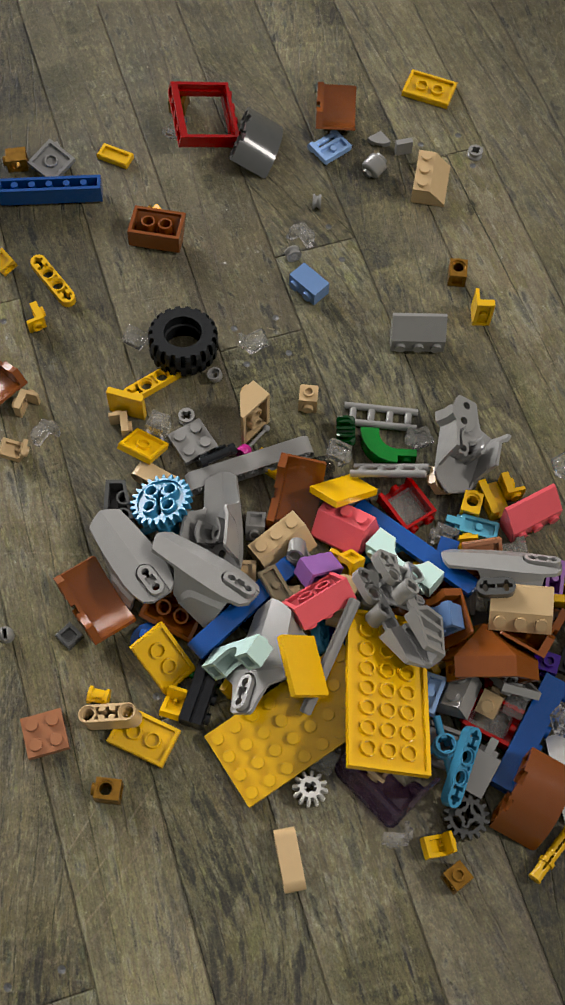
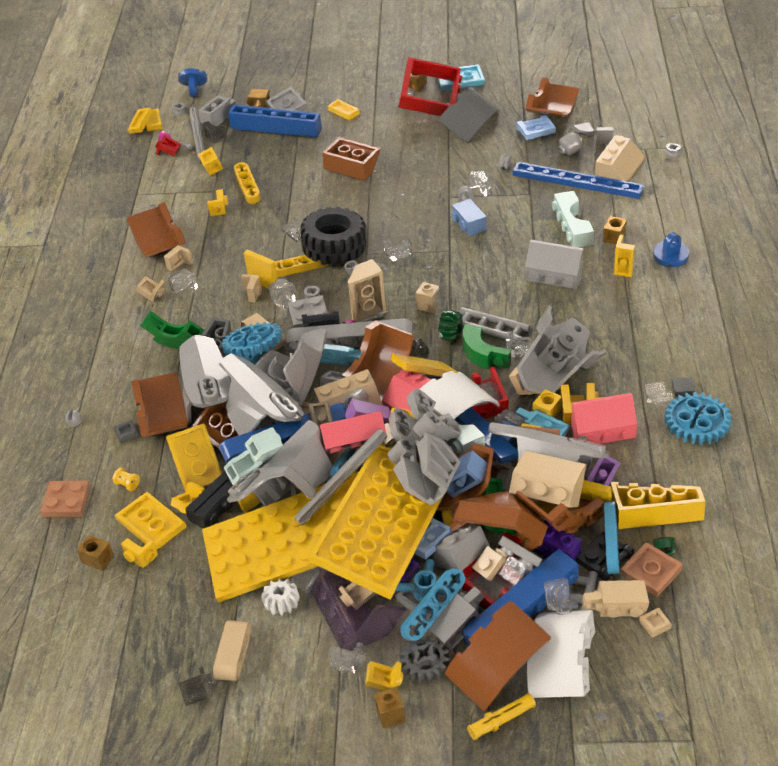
camera: 25 degrees right, 20 degrees down
(65, 505) = (167, 333): none -> green arch
(110, 716) = (126, 493): tan beam -> none
(143, 446) = (261, 304): yellow tile -> none
(149, 781) = (138, 554): none -> yellow bracket
(236, 82) = (471, 77): none -> medium azure tile
(254, 490) = (339, 355): none -> medium azure hinge
(274, 910) = (196, 688): none -> clear smoke bracket
(302, 666) = (307, 472): yellow tile -> none
(339, 452) = (436, 339): clear bracket -> none
(390, 470) = (477, 360): light grey bar -> none
(396, 210) = (578, 180): none -> blue tile
(400, 531) = (455, 393): none -> white panel
(423, 281) = (577, 231): none -> light aqua arch
(429, 89) = (649, 101): yellow tile -> none
(495, 587) = (526, 451): dark grey beam -> none
(518, 288) = (671, 251): none -> blue tile

